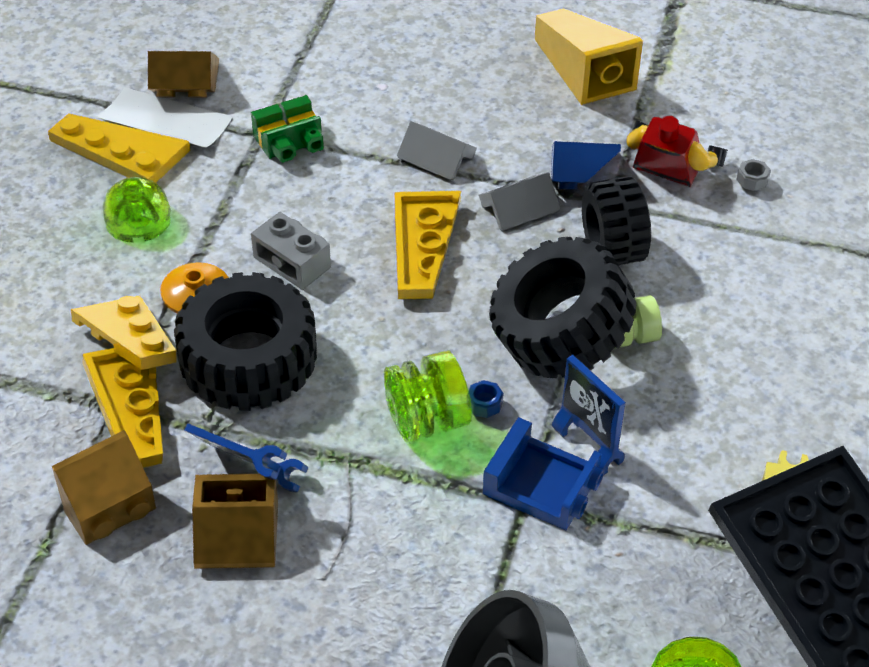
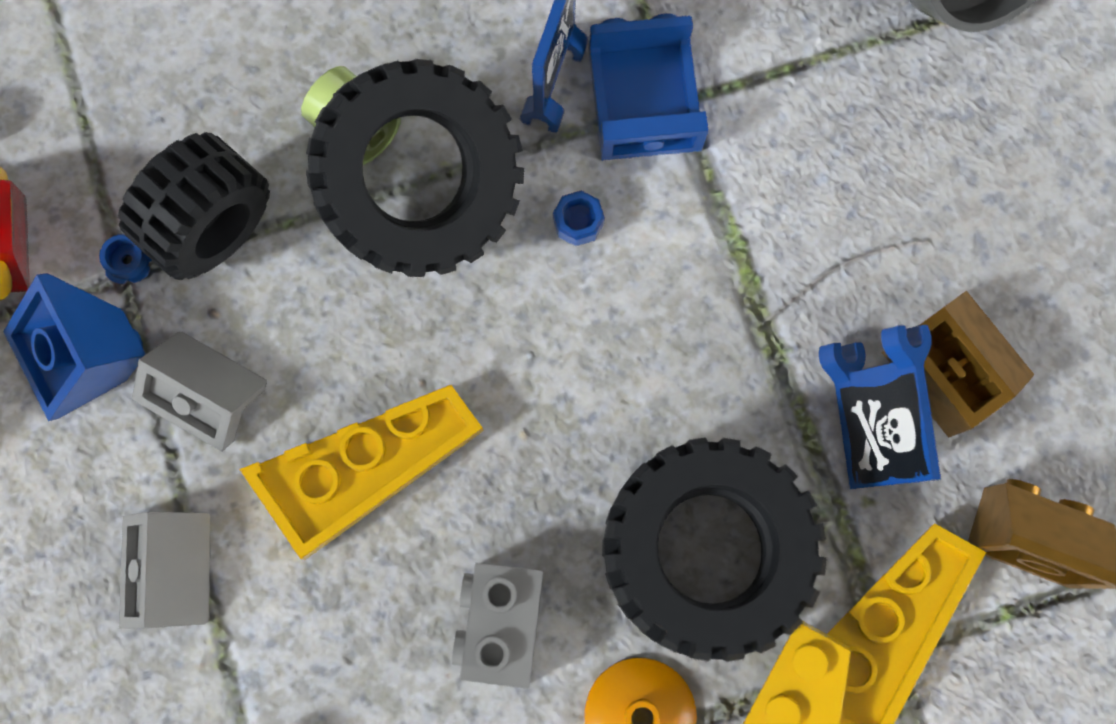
camera: 125 degrees left, 30 degrees up
(427, 395) = (646, 259): clear neon green wheel -> none

